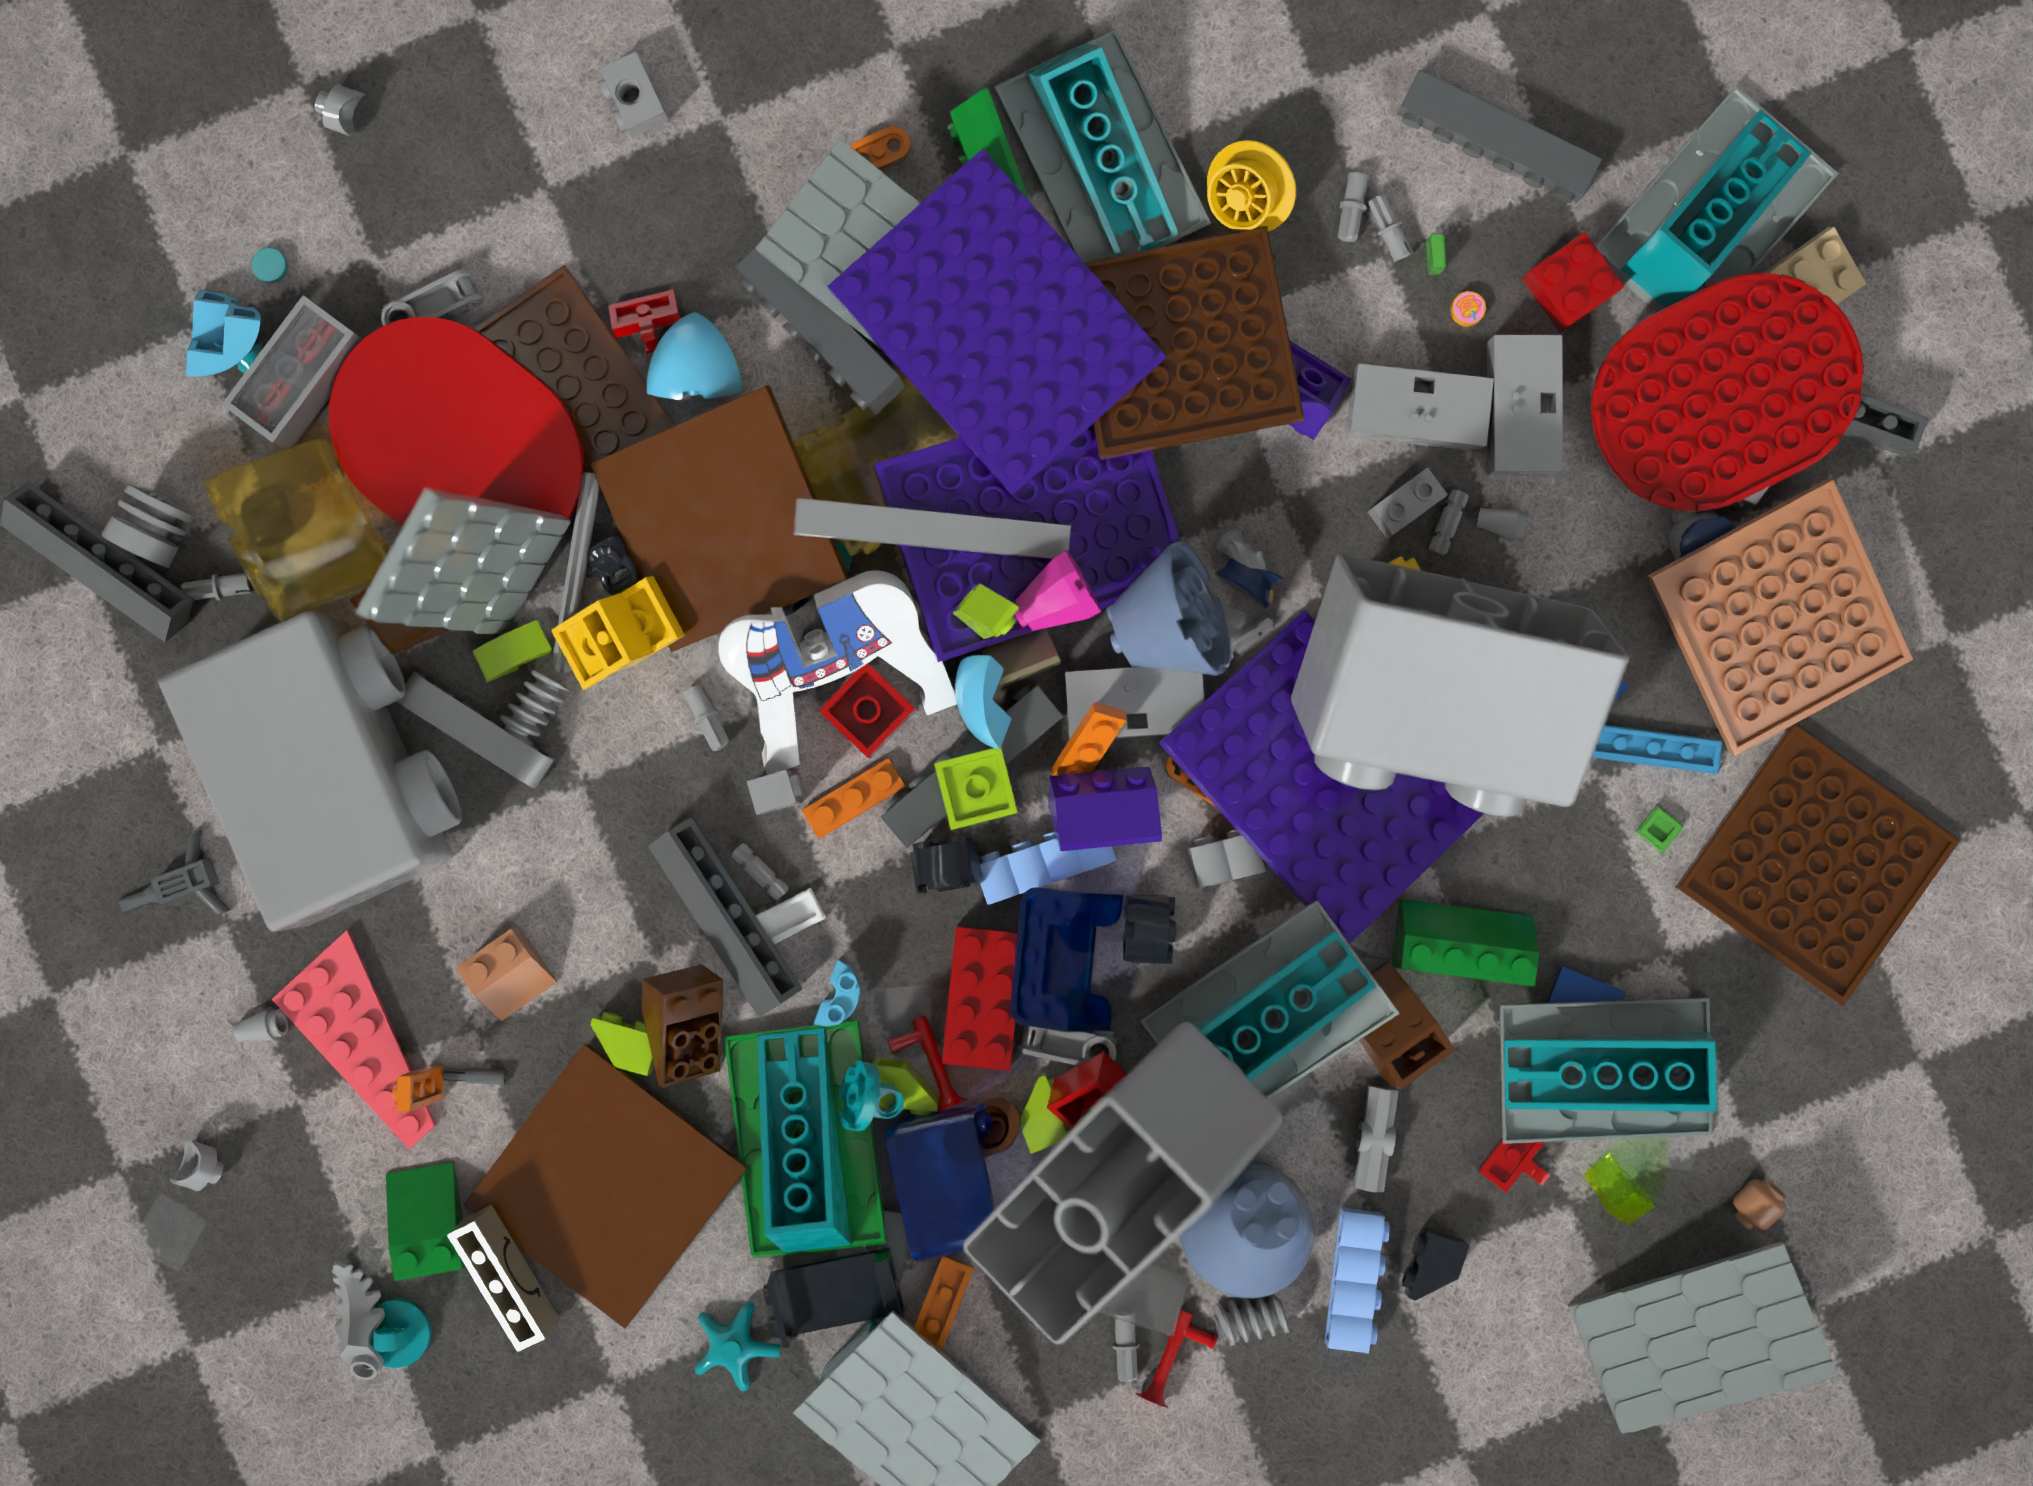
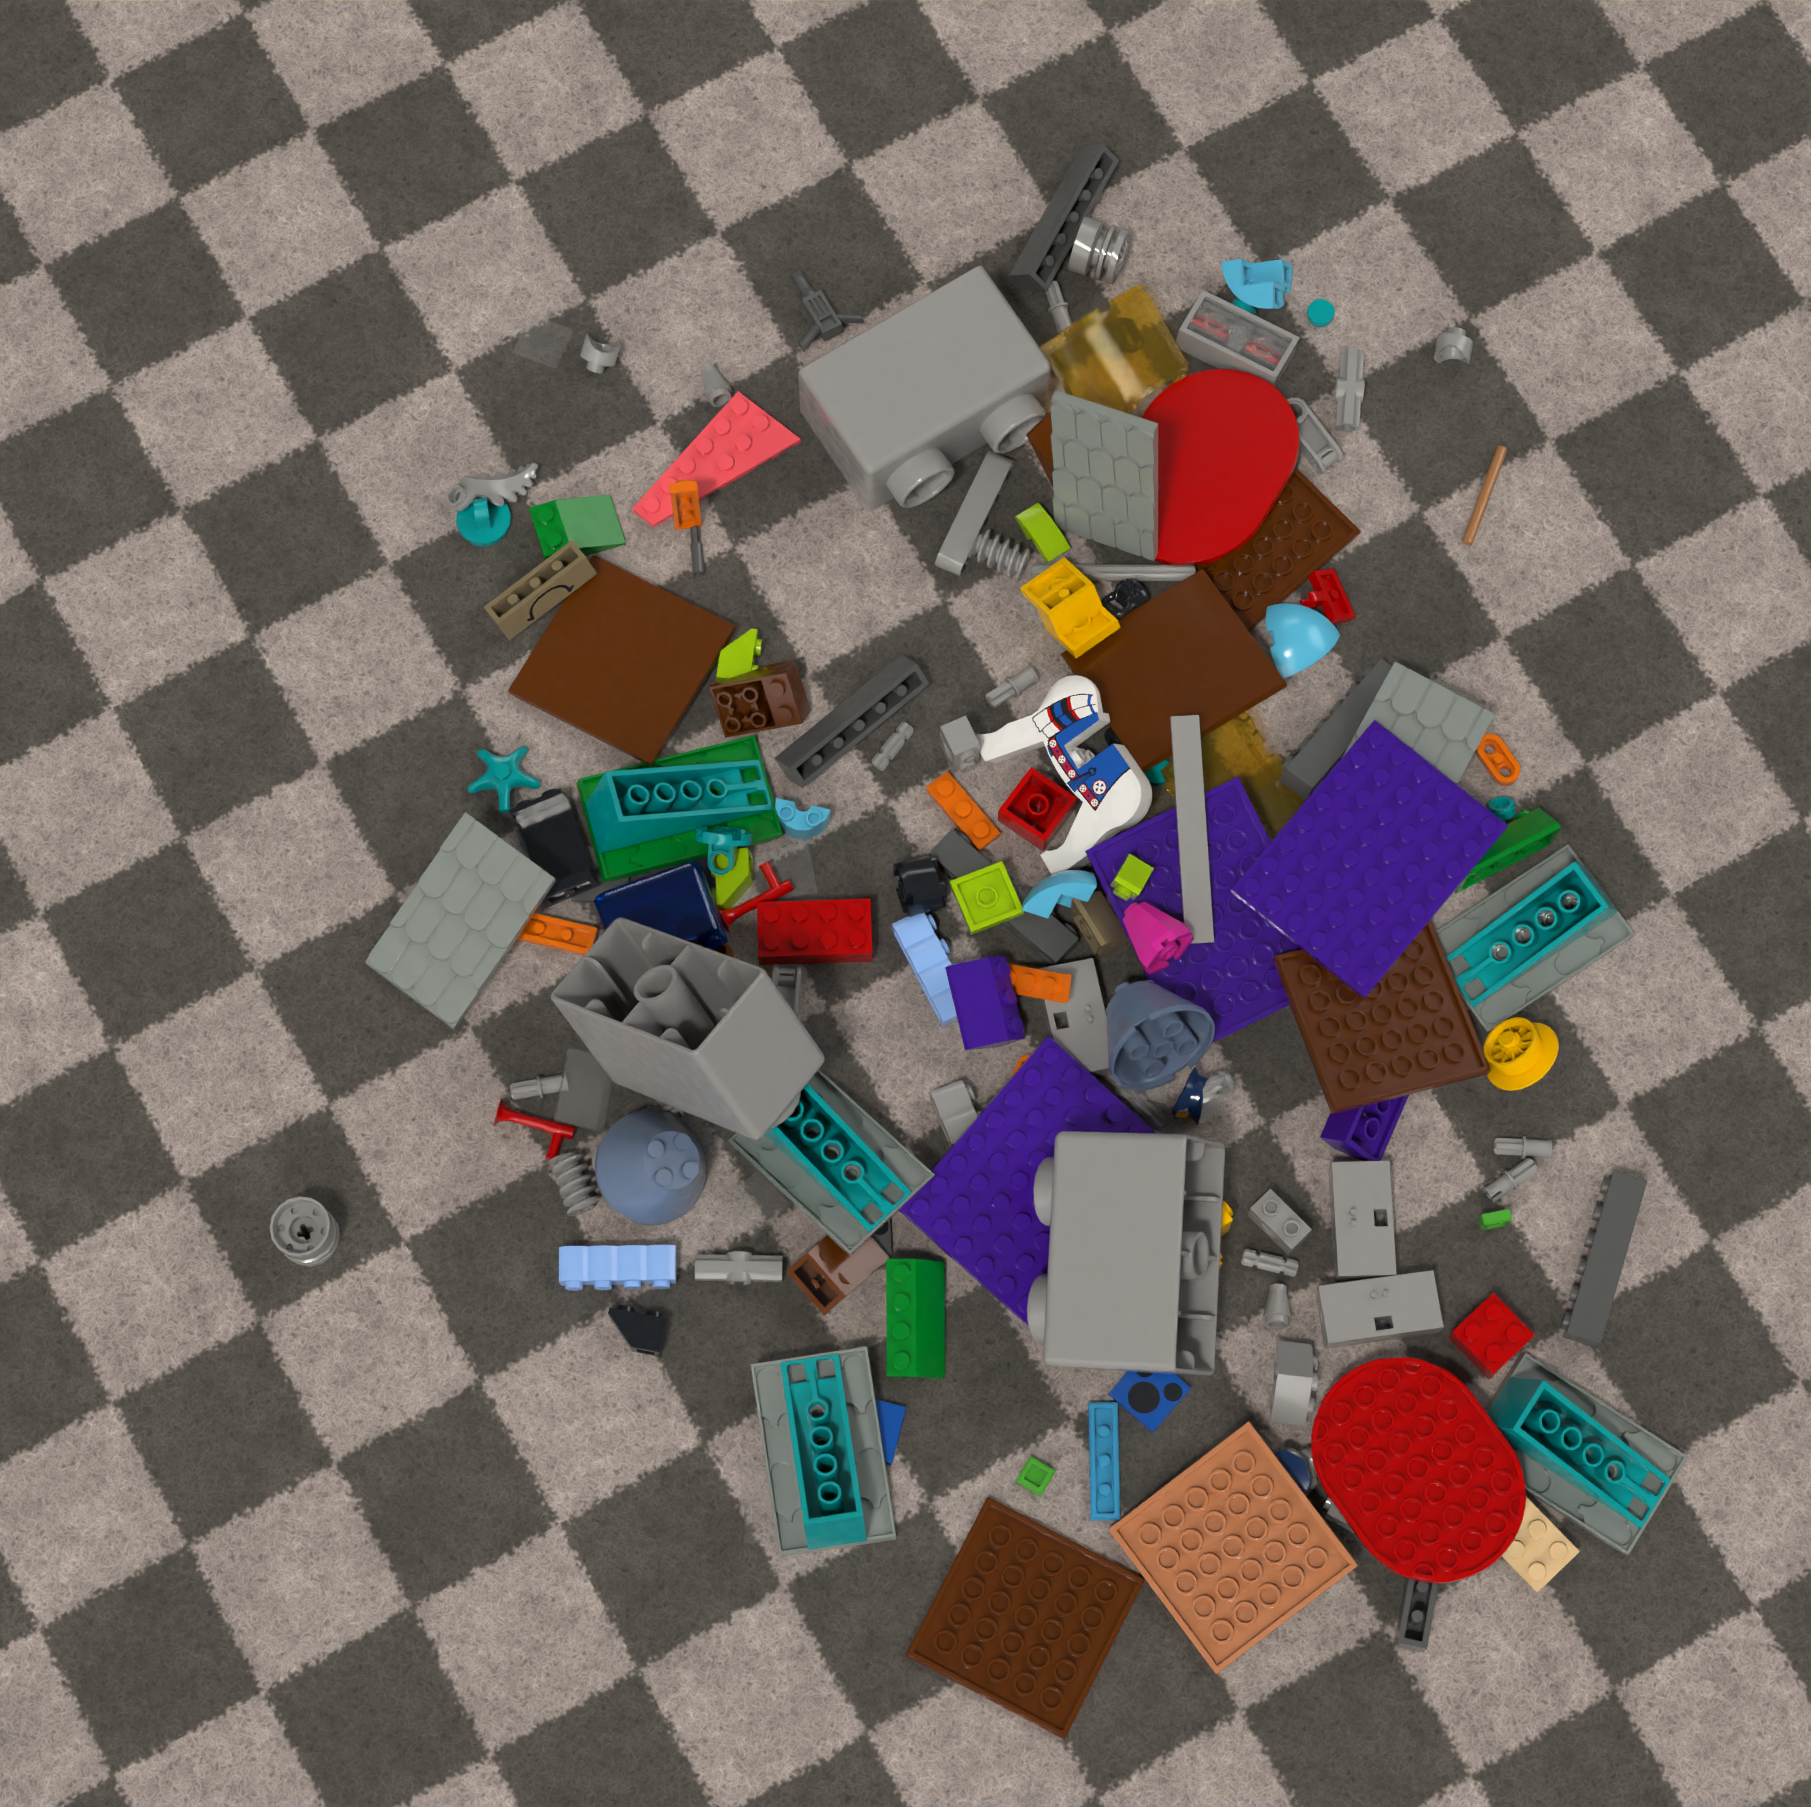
camera: 80 degrees right, 15 degrees down
(378, 246) = (1349, 390): none -> light grey piece
(506, 973) = (783, 561): nougat slope -> none
(538, 107) = (1484, 495): none -> medium nougat bar
(629, 75) = (1498, 577): light grey brick -> none
(791, 916) = (859, 775): white tile -> none
(940, 158) = (1502, 807): none -> teal tile
(1057, 959) = (857, 986): clear blue windscreen -> none
(1149, 929) = (890, 1053): black brick -> none
(1468, 308) = (1454, 1255): tile -> none
(1509, 1161) = (735, 1383): red plate -> none
(1598, 518) = (1293, 1382): none -> light grey brick
(1618, 1191) = (718, 1480): clear neon green slope -> none
(1703, 1339) = (606, 1556): light grey piece -> none
(1759, 1204) = (724, 1601): nougat head -> none

